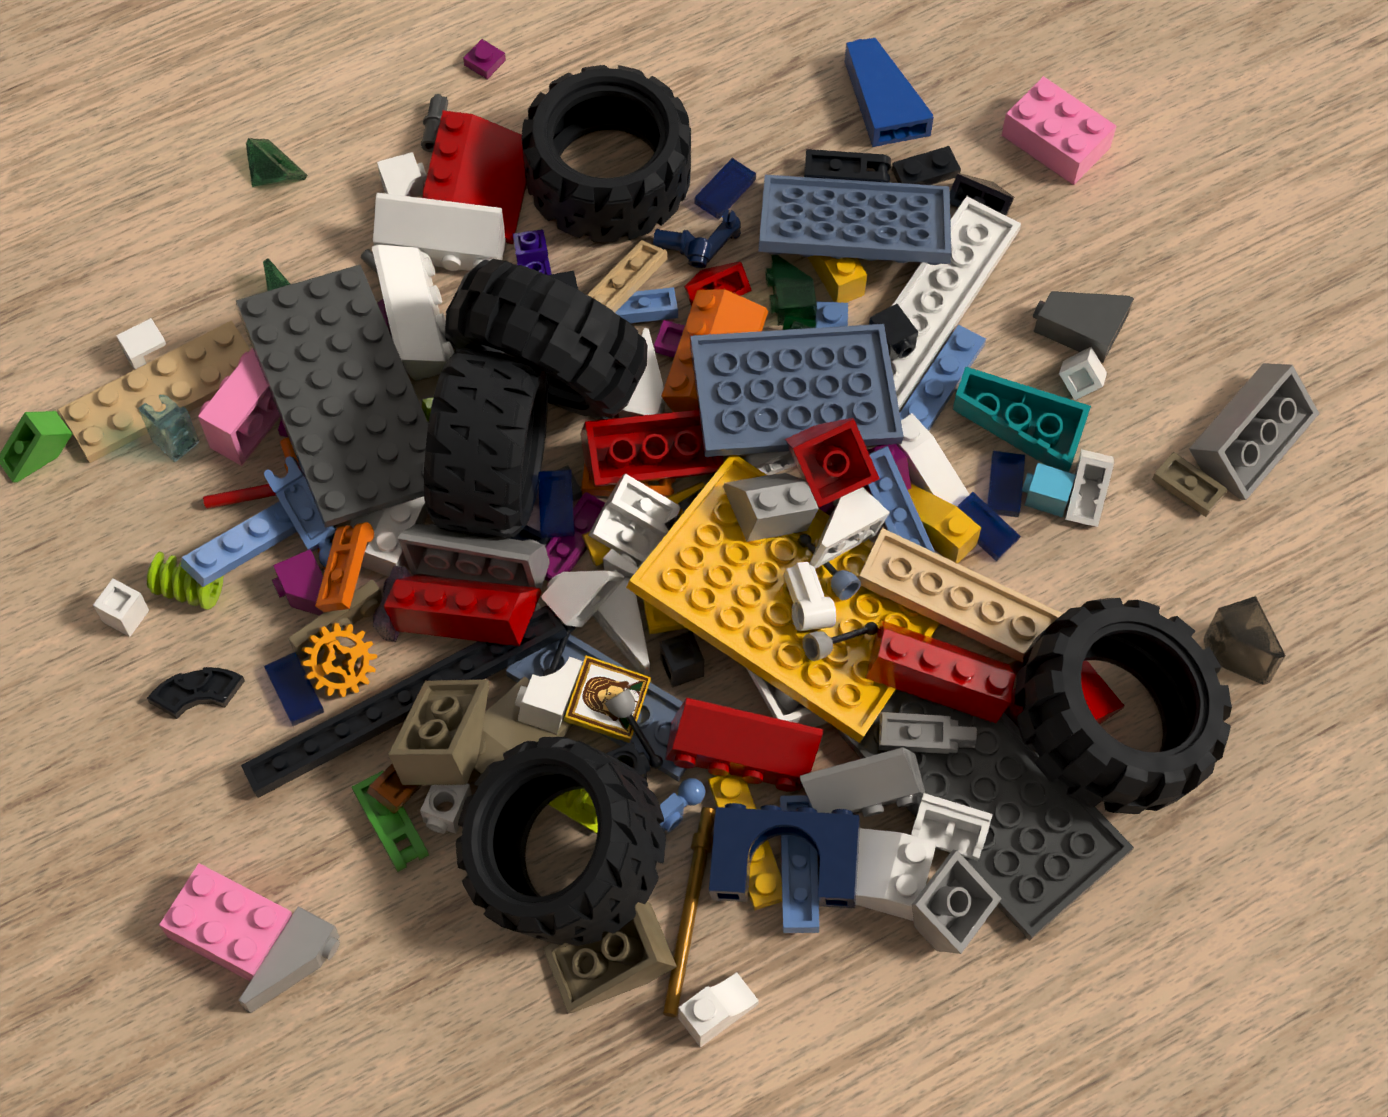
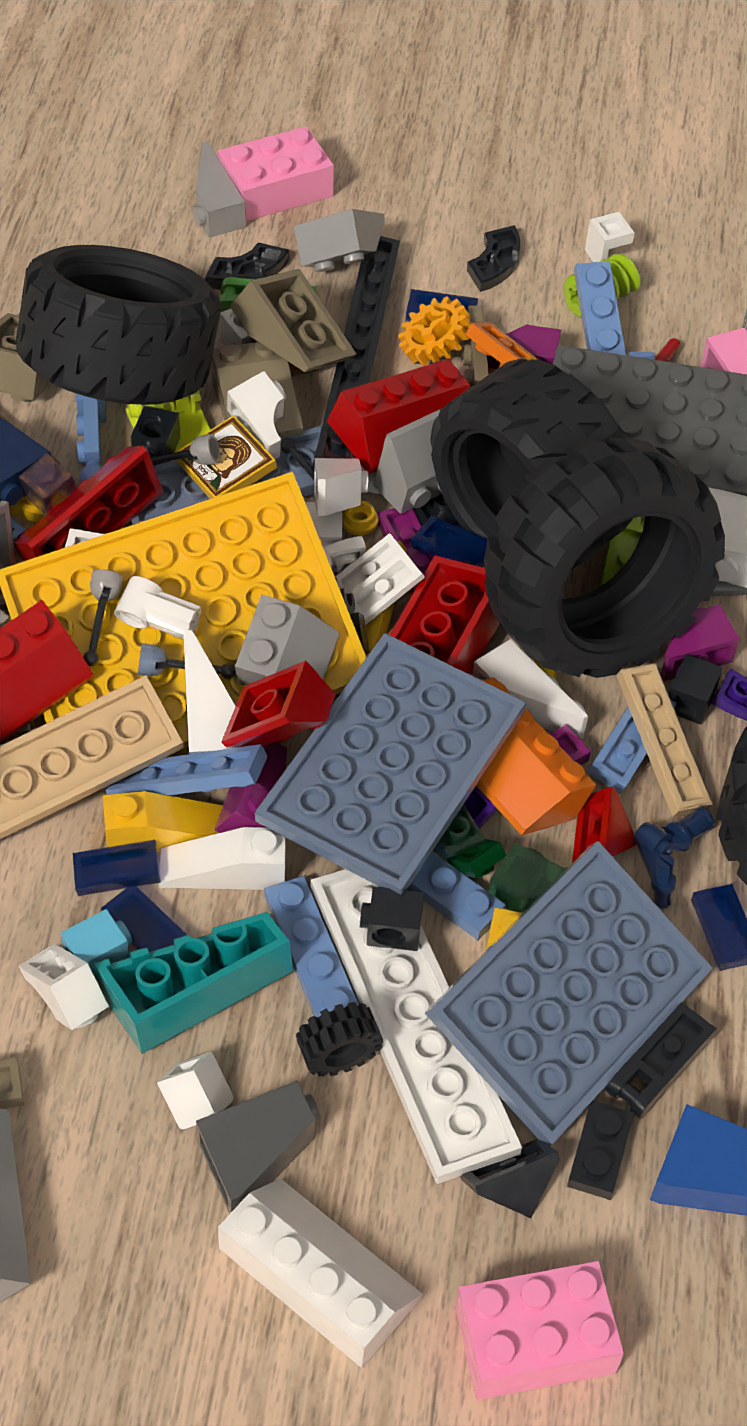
camera: 125 degrees right, 10 degrees down
(284, 799) = (338, 238): none -> light grey slope
(361, 869) = (256, 264): none -> black tile
(743, 786) = (47, 483): none -> brick
(992, 314) = (339, 1039): none -> black tyre
(1120, 243) = (317, 1269): none -> white slope

